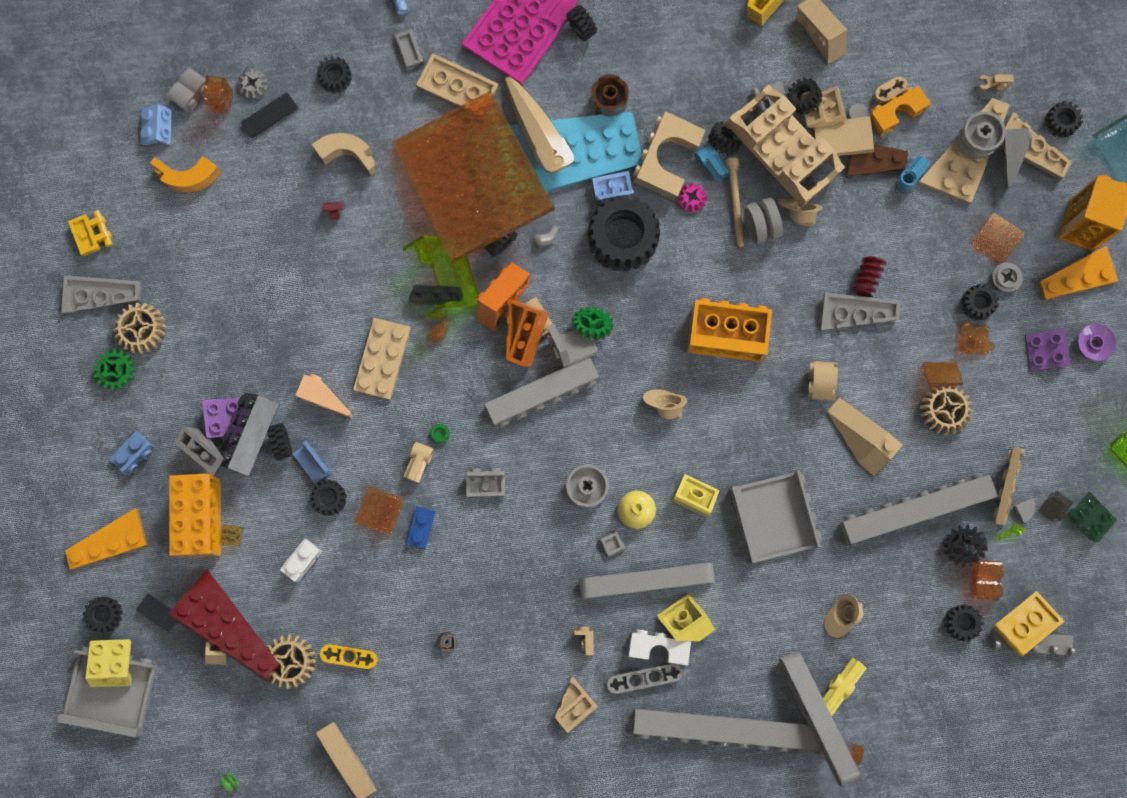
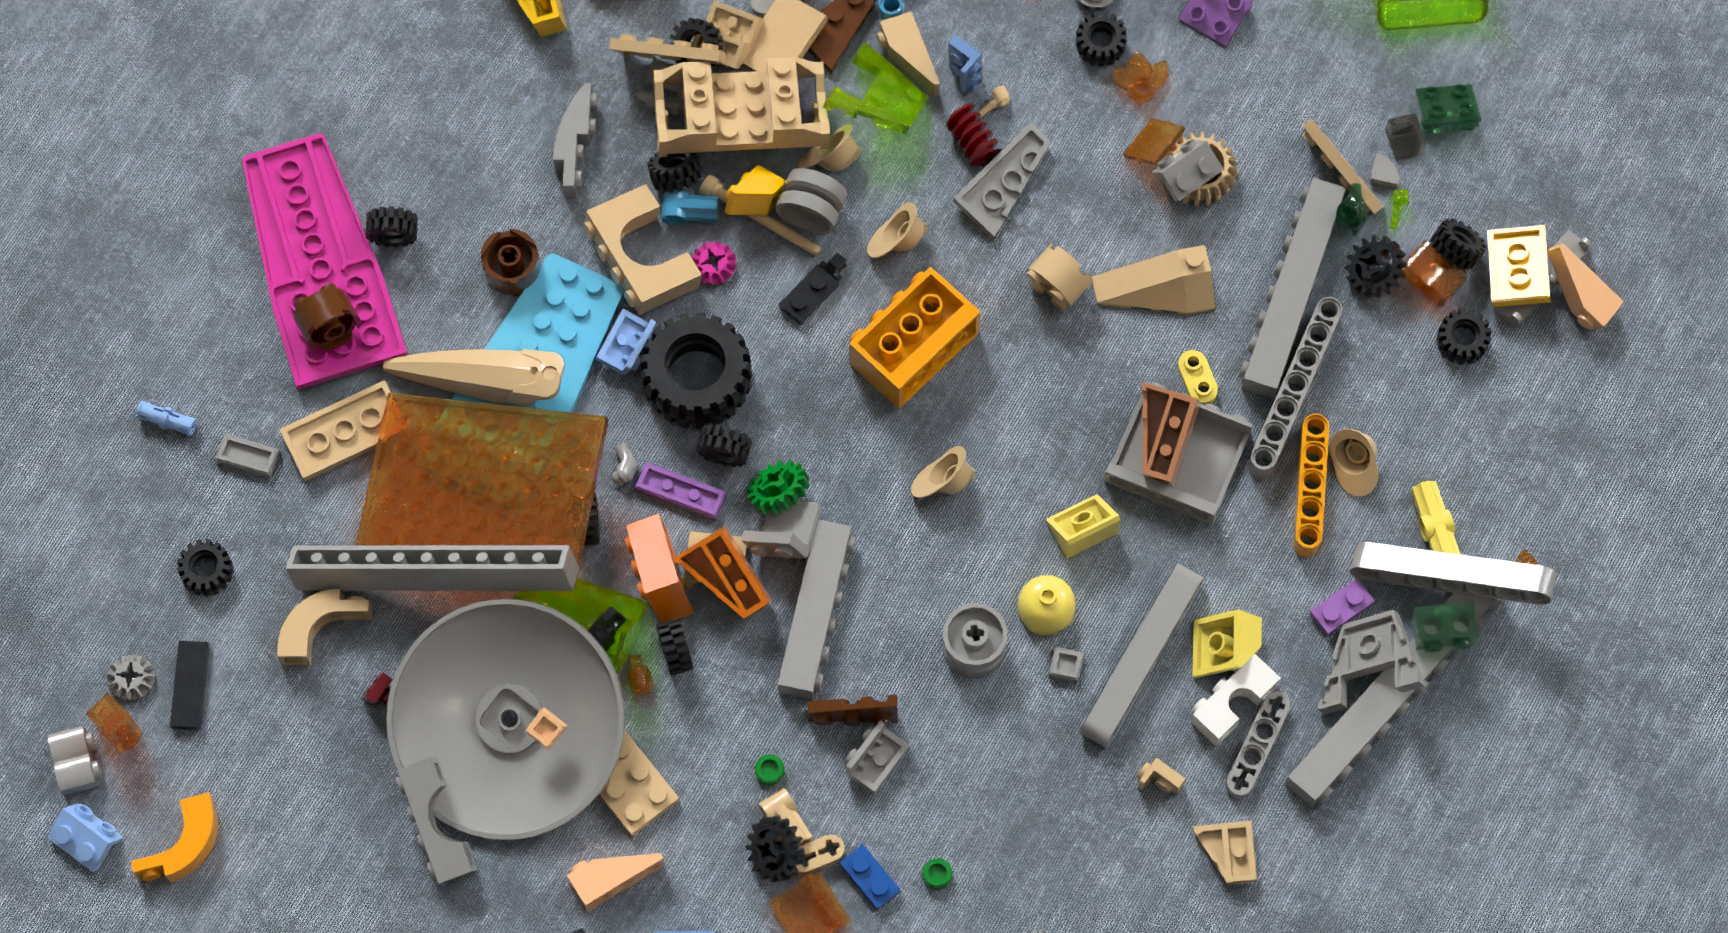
camera: 50 degrees left, 10 degrees down
(272, 307) = (422, 785): none -> light grey arch
(330, 277) = (453, 703): none -> light grey dish
(368, 305) = (546, 728): none -> light nougat tile
(396, 468) = (775, 848): none -> black gear
(410, 185) = (433, 567): none -> light grey brick
(415, 488) = (824, 860): none -> tan beam
(448, 561) = (937, 874): none -> green tile
(465, 336) = (674, 647): none -> black tyre
(489, 439) = (864, 710): none -> reddish brown wing
(504, 28) = (326, 318): none -> reddish brown brick
(555, 275) = (680, 491): none -> medium lavender tile
(593, 278) = (723, 445): none -> black tyre
(706, 72) = (573, 135): none -> light grey slope
(717, 259) = (813, 289): none -> black hinge
(742, 701) = (1367, 648): none -> light grey wing
(744, 188) = (755, 193): none -> yellow slope
(756, 667) = (1342, 607): none -> medium lavender plate
(779, 502) = (1166, 431): none -> nougat wedge
(783, 76) = (628, 46): none -> tan wing
(783, 279) = (898, 233): none -> tan piece
(786, 732) = (1442, 618): none -> clear green brick
(821, 600) = (1306, 497): none -> light orange beam
(826, 495) = (1197, 376): none -> light yellow plate
(852, 219) = (890, 100): none -> clear neon green wing
(870, 552) = (1291, 399): none -> light grey beam
(890, 205) = (908, 50): none -> tan slope
(902, 275) = (1001, 99): none -> tan hand
(906, 242) = (965, 63): none -> medium blue bracket
(939, 403) = (1188, 168): none -> light grey bracket
(987, 509) = (1352, 210): none -> clear green animal
(1014, 581) = (1458, 244): none -> black tyre
(1041, 673) = (1584, 291): none -> light nougat slope

